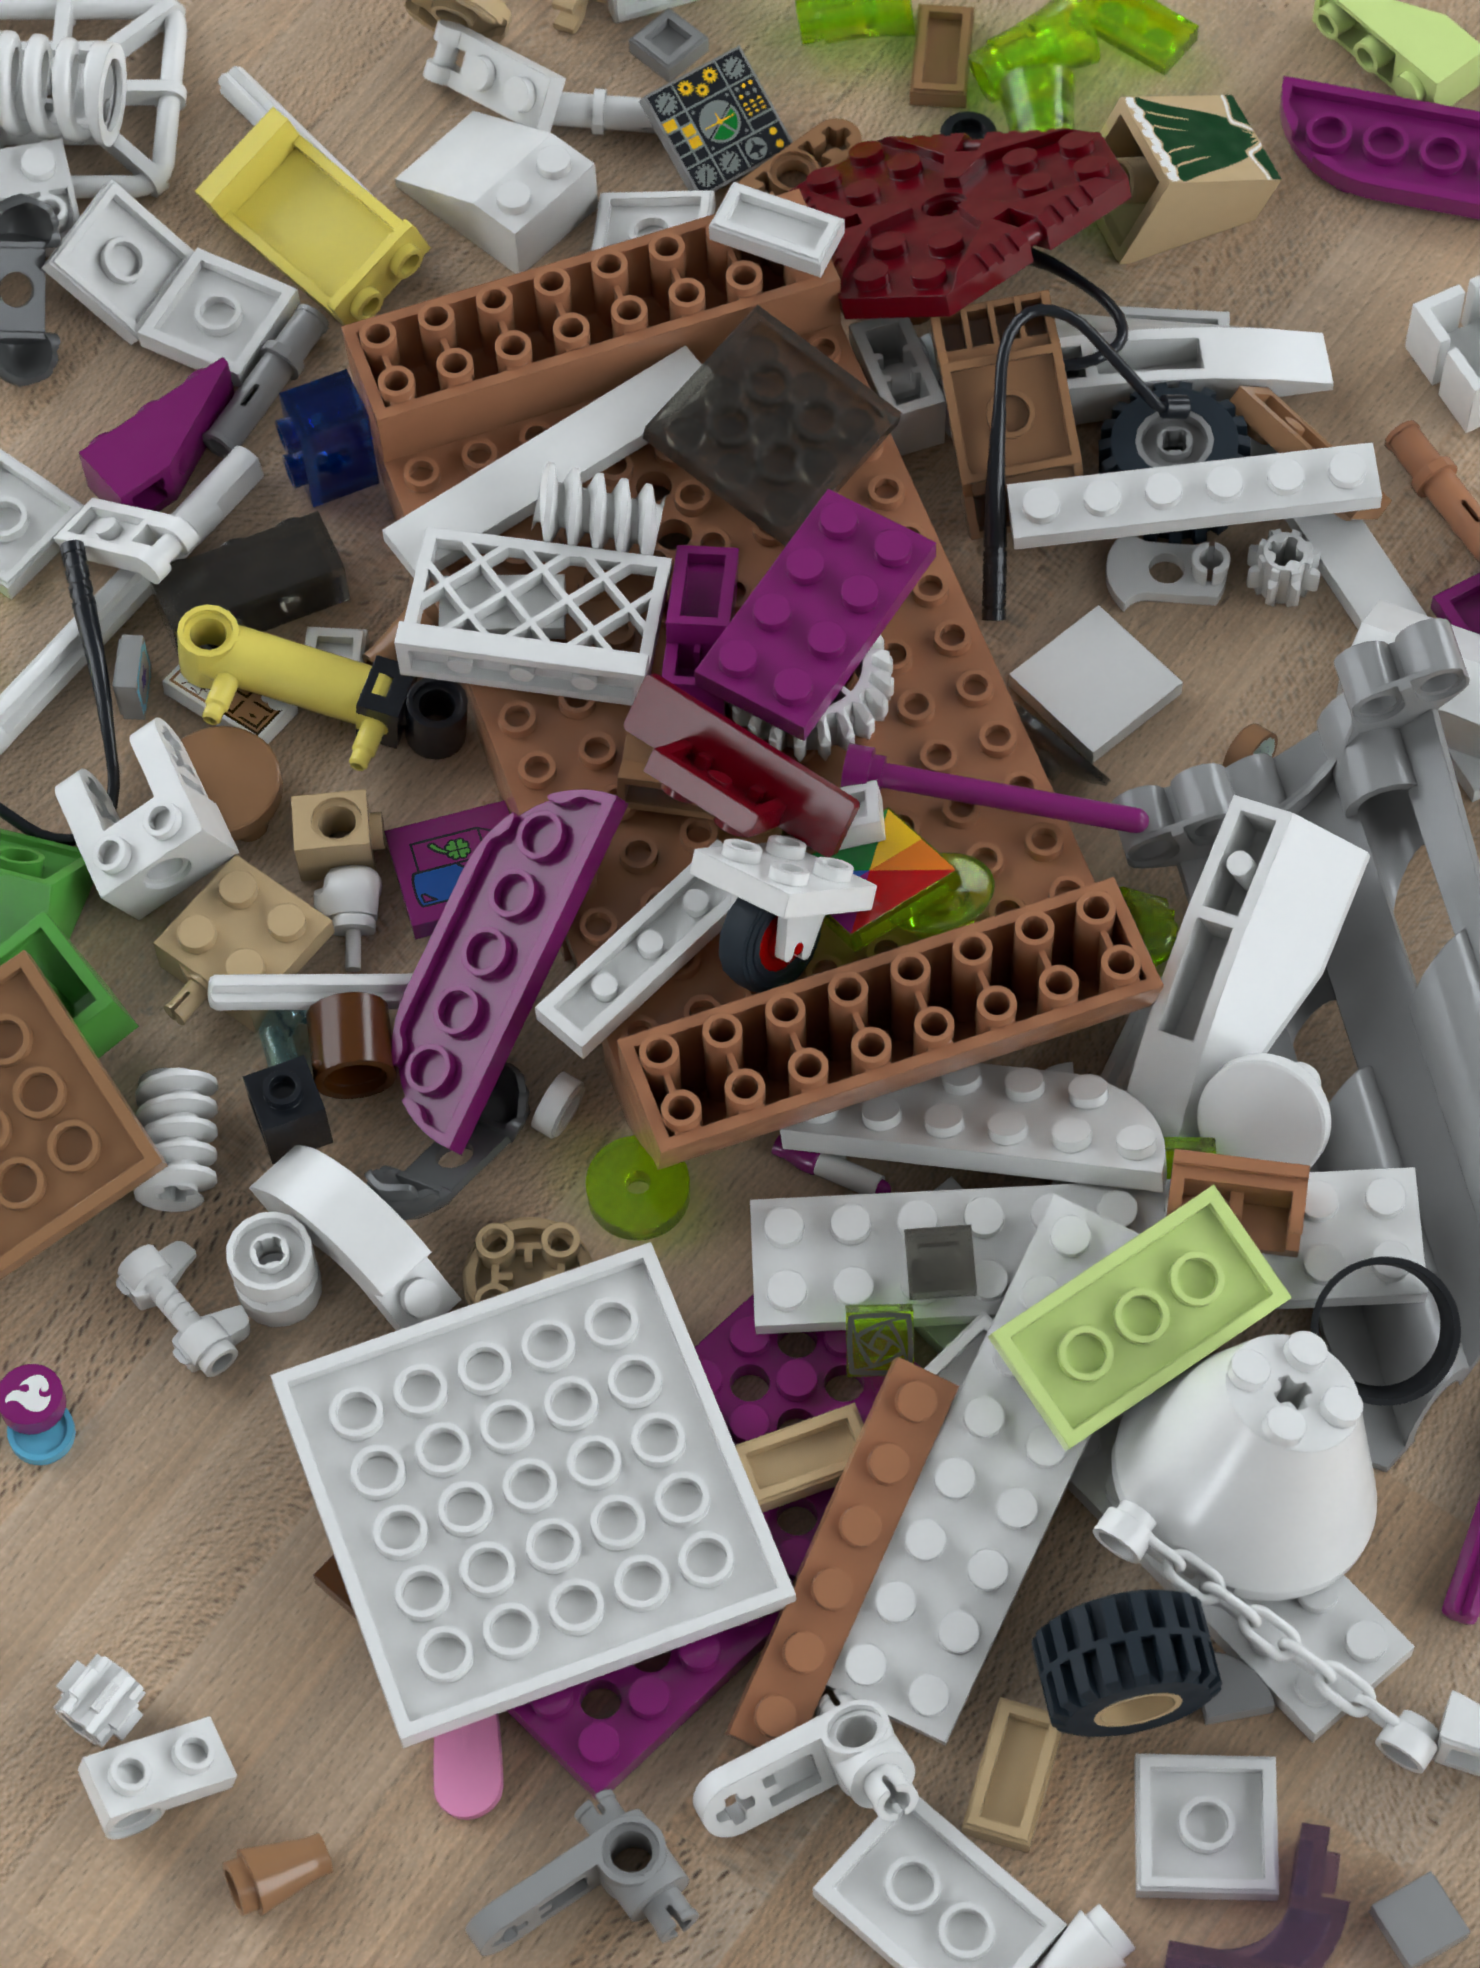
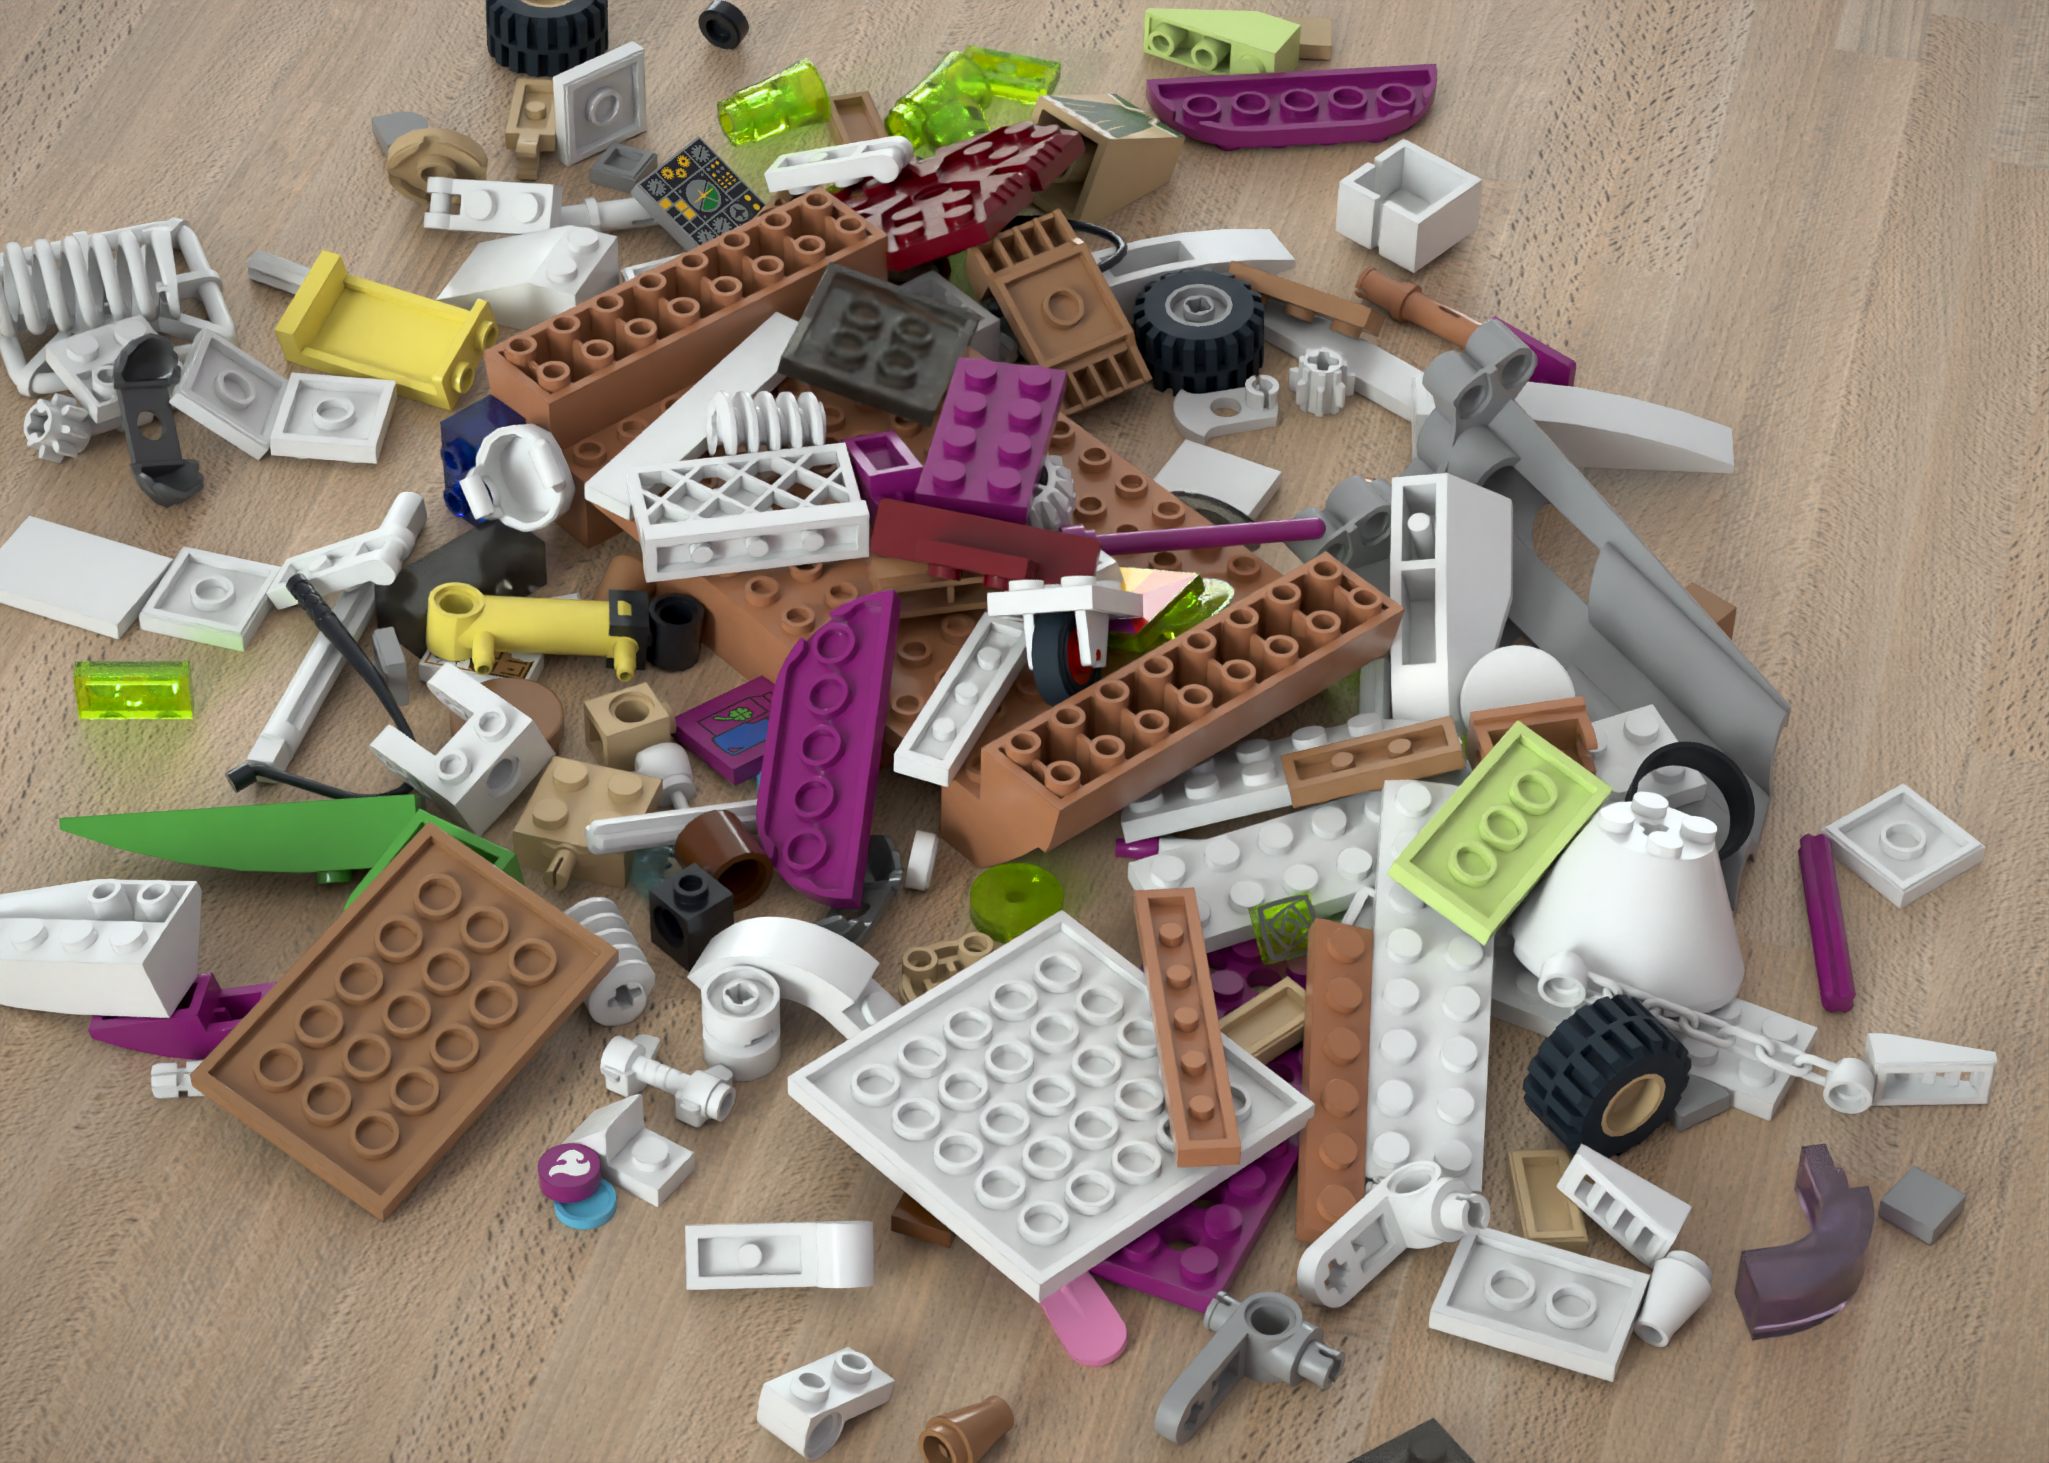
camera: 25 degrees left, 20 degrees down
(99, 1700) = (747, 1355): white gear -> none
(106, 1388) = (633, 1154): none -> white slope
(159, 447) = (326, 506): magenta slope -> none
(189, 1580) = (780, 1255): none -> white plate
(279, 363) = (403, 437): light grey pin -> none
(343, 485) = (525, 478): none -> white piece
(695, 1458) = (1186, 1028): none -> nougat plate
(776, 229) = (822, 207): white tile -> none
(875, 125) = (840, 164): none -> white plate
(940, 1262) = (1313, 853): clear smoke tile -> none
(995, 527) = (1081, 396): black piece -> none
(1051, 1166) = (1369, 760): none -> medium nougat plate
(1089, 1838) = (1634, 1210): none -> white slope
(1194, 496) = (1233, 334): white plate -> none
(1206, 1827) = (1731, 1192): white tile -> none

